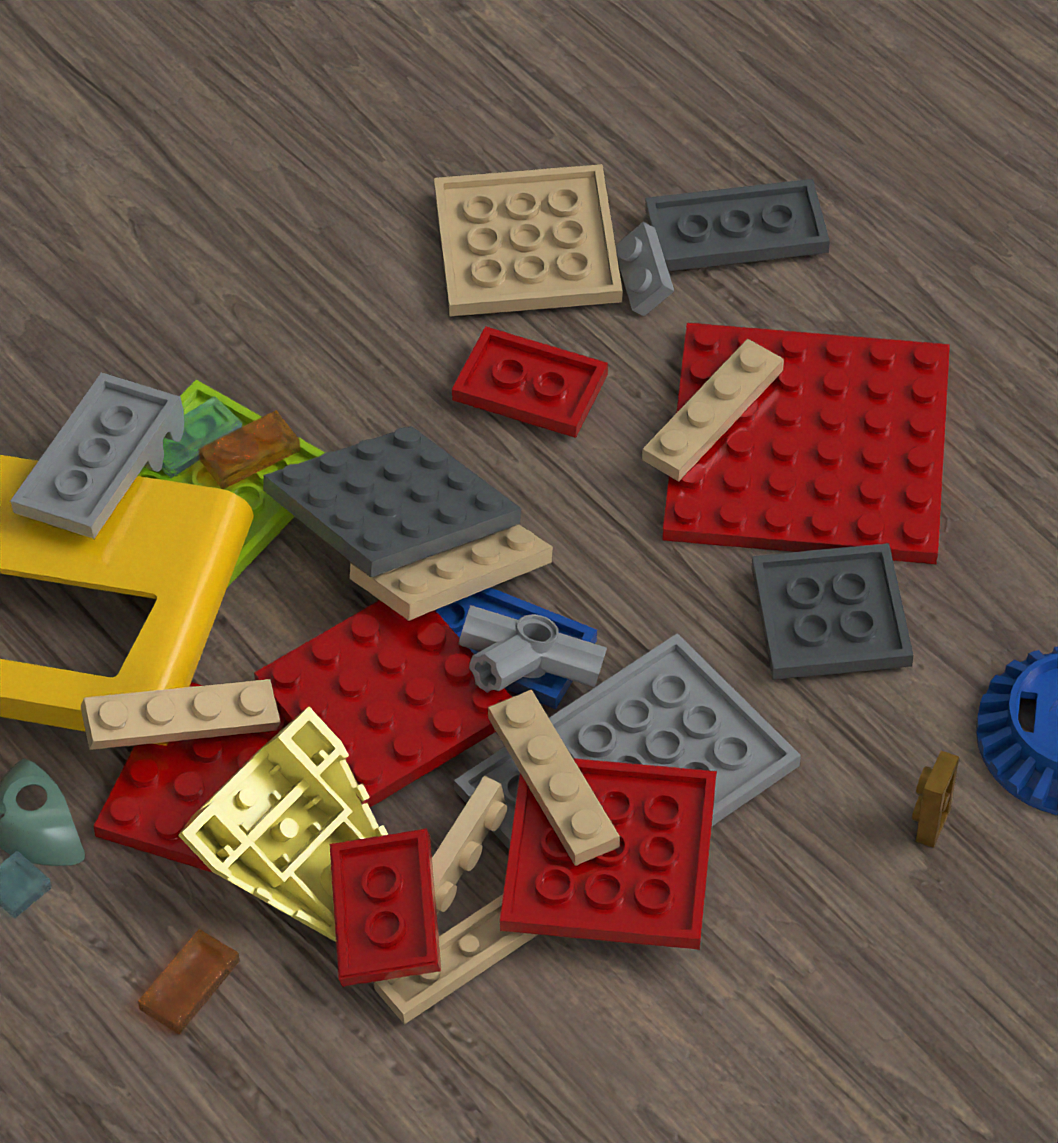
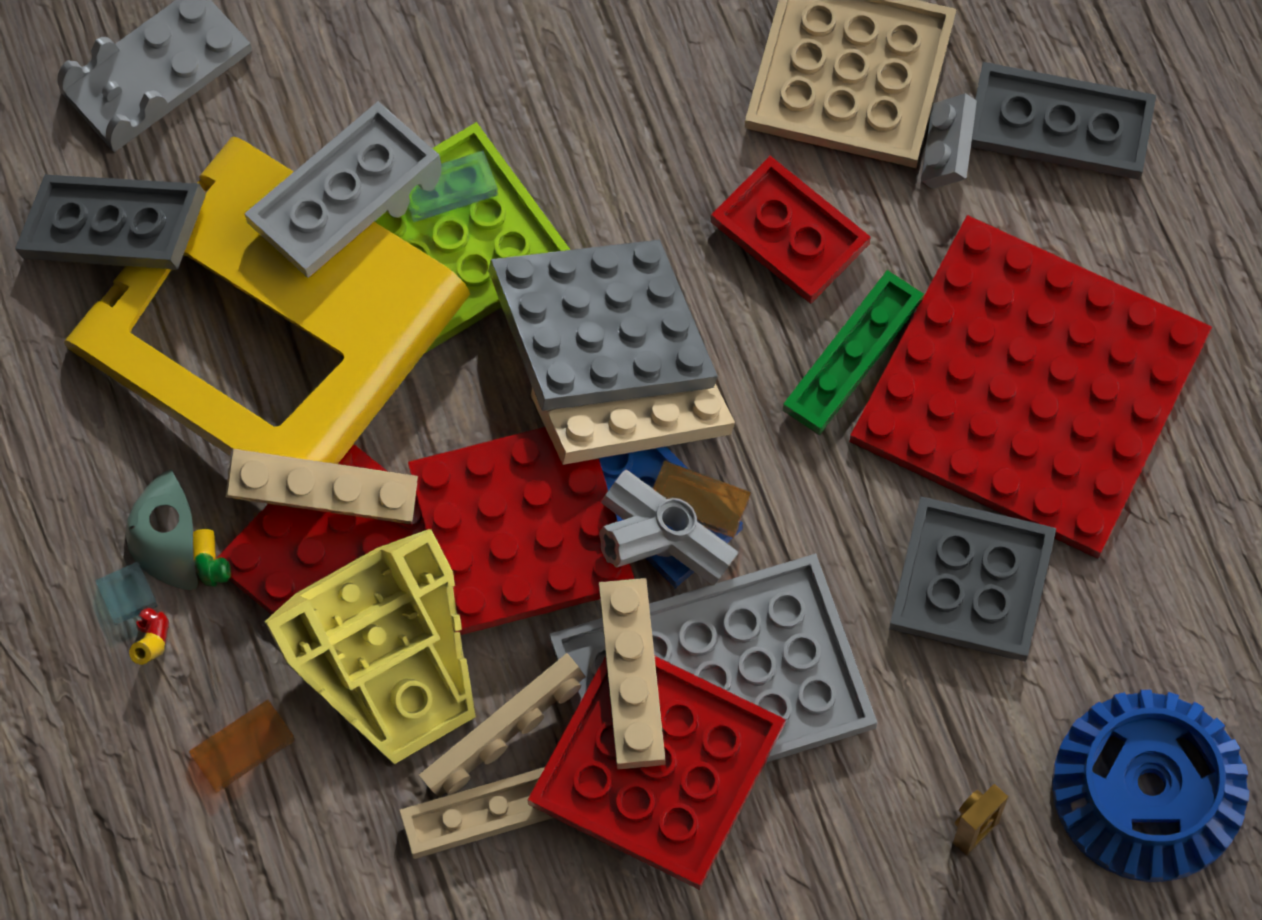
camera: 20 degrees right, 15 degrees up
(58, 909) = (153, 644): none -> arm
(91, 833) = (204, 555): none -> green arm
(249, 449) = (494, 218): clear orange plate -> none
(384, 907) = (430, 749): red tile -> none
(571, 614) = (714, 502): none -> clear orange tile
(627, 475) = (853, 352): none -> green plate
(712, 410) = (948, 325): tan plate -> none

